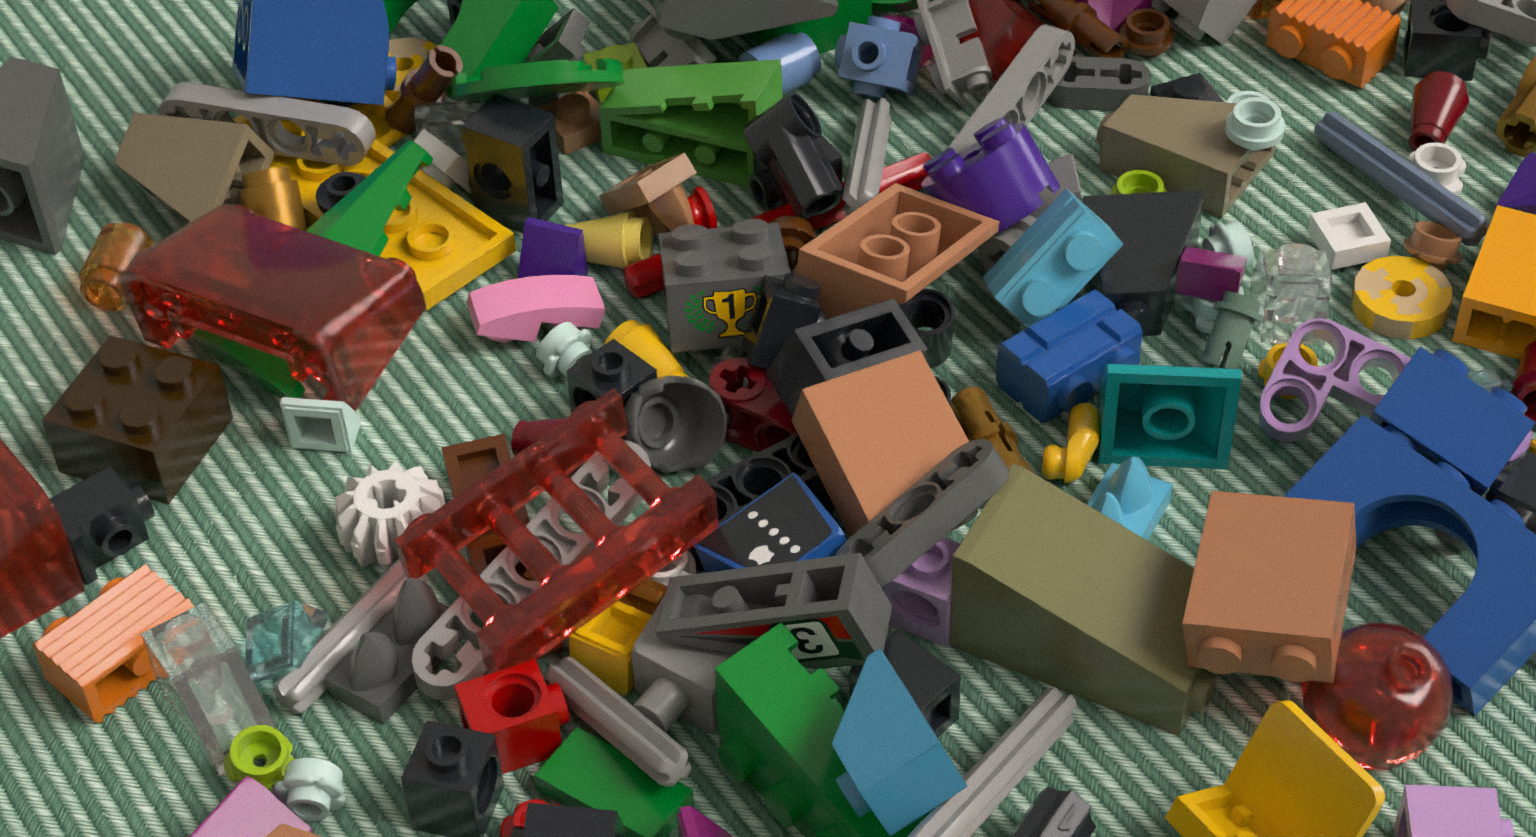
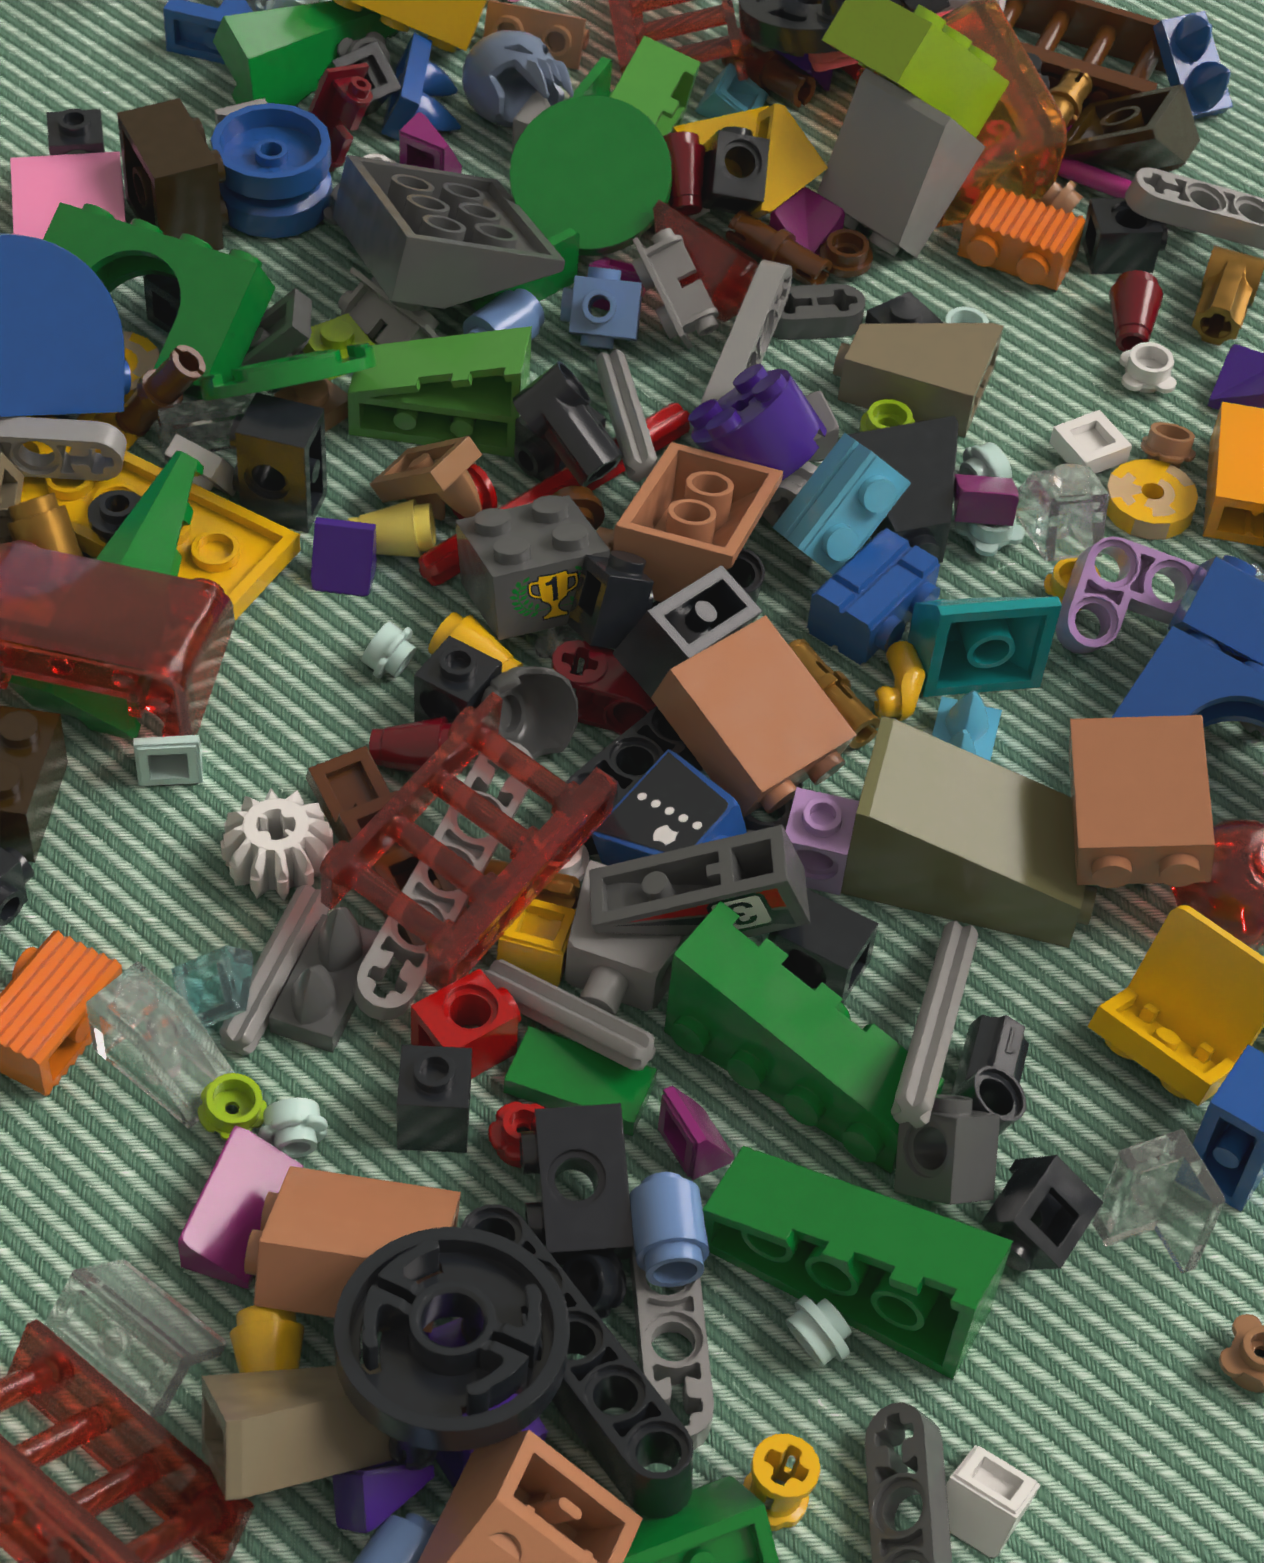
camera: 20 degrees left, 5 degrees up
(519, 305) = (334, 608): bright pink slope -> none
(891, 751) = (863, 1006): dark azure slope -> none
(928, 510) = (835, 743): dark grey beam -> none
(1230, 329) = (1015, 554): sand green pin -> none
(1255, 124) = (990, 344): light aqua plate -> none
(1401, 178) = (1122, 380): sand blue axle -> none

